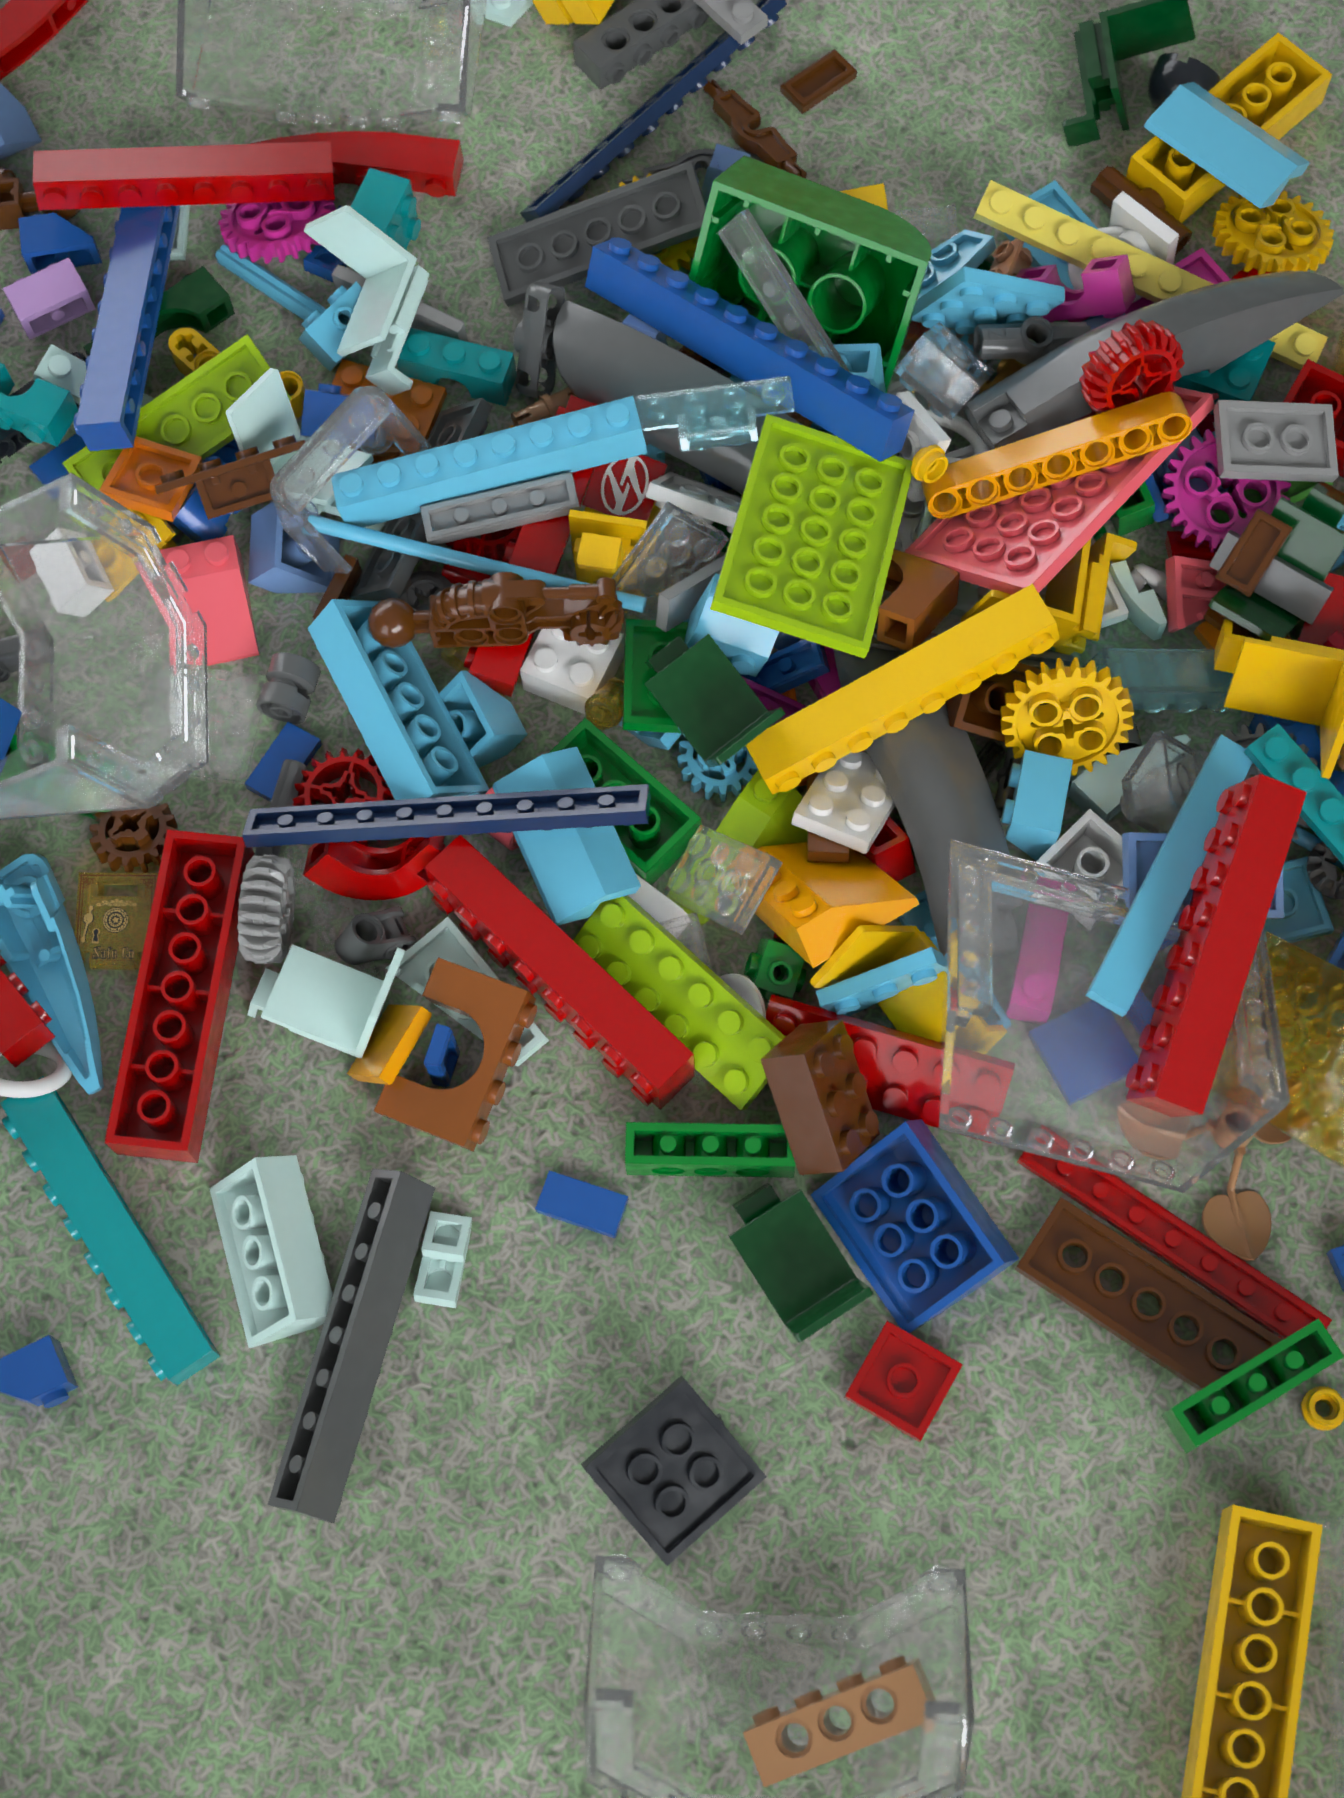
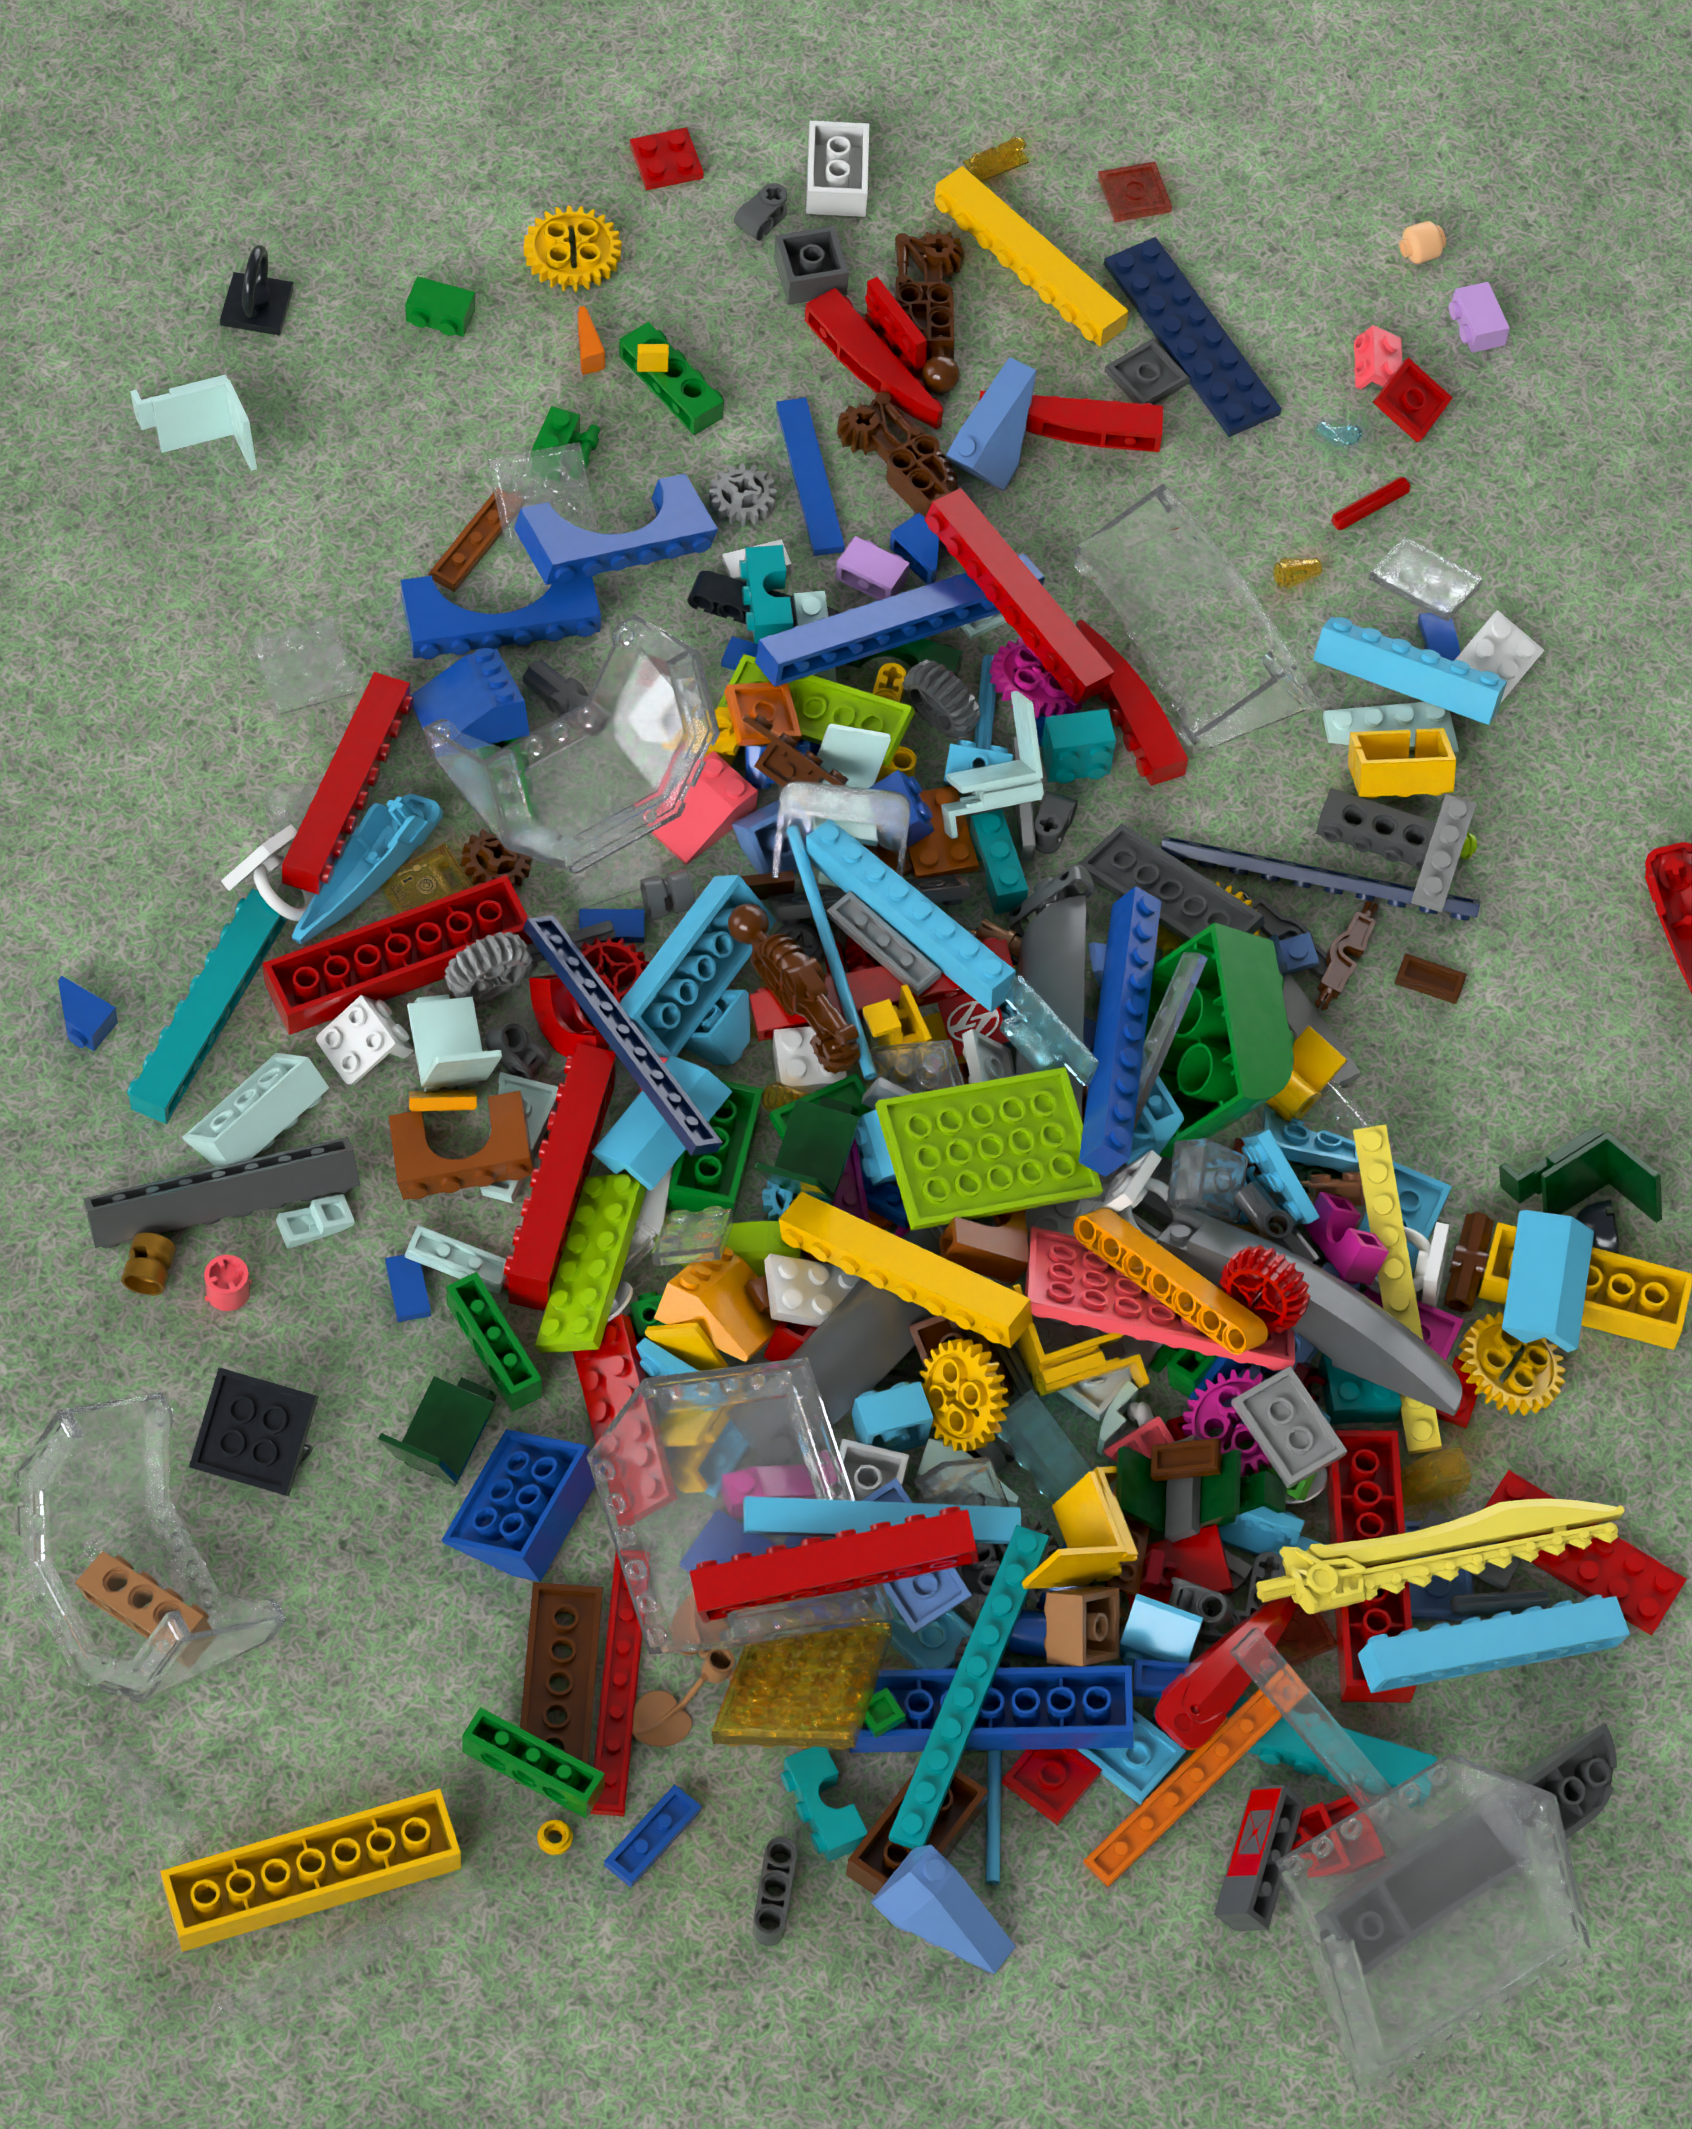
camera: 50 degrees right, 10 degrees down
(244, 306) = (941, 699): none -> dark grey gear
(257, 1088) = (362, 1038): none -> white bracket
(390, 1473) = (148, 1264): none -> pearl gold wheel
(442, 1056) = (454, 1135): blue tile -> none
(446, 293) = (1053, 821): none -> dark grey piece
(466, 1398) = (227, 1282): none -> coral piece
(582, 1133) = (456, 1258): none -> light aqua tile
(821, 1097) = (569, 1380): reddish brown brick -> none
(903, 1381) = (406, 1552): red plate -> none
(929, 464) = (1103, 1199): yellow plate -> none

